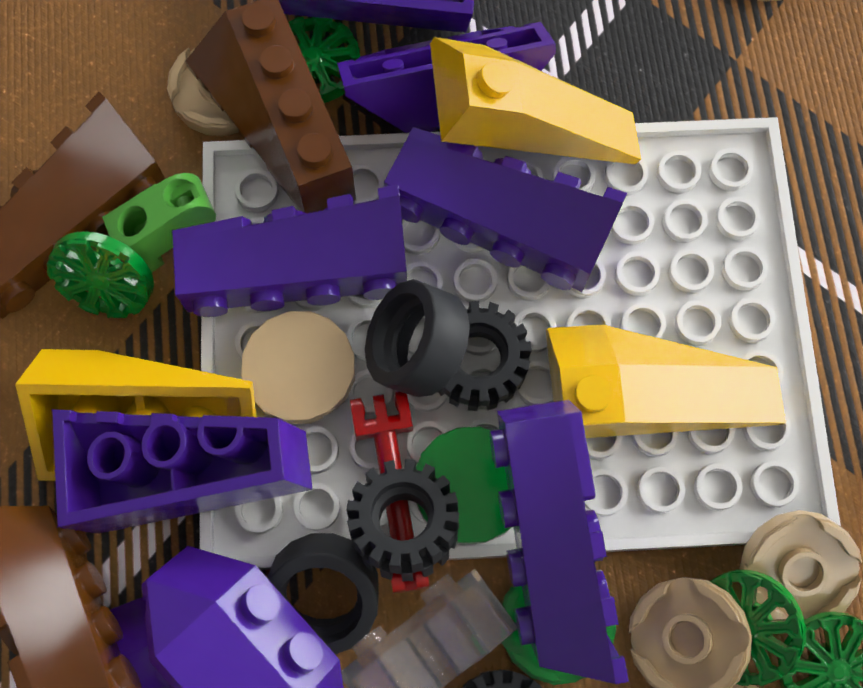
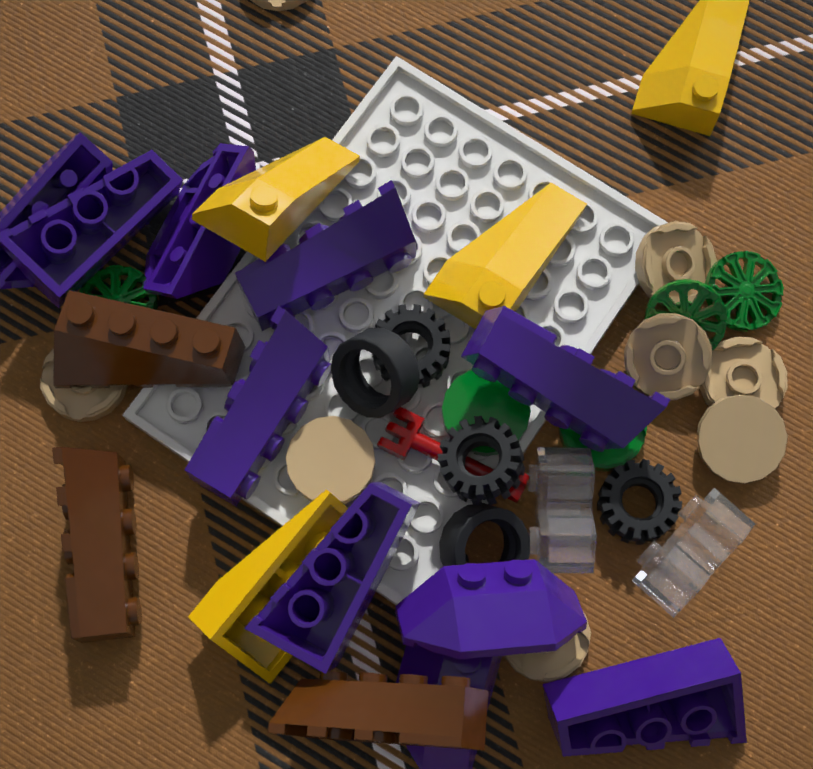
camera: 50 degrees left, 0 degrees up
(101, 273) = (167, 542): green wheel -> none
(149, 217) = (160, 478): bright green leg -> none

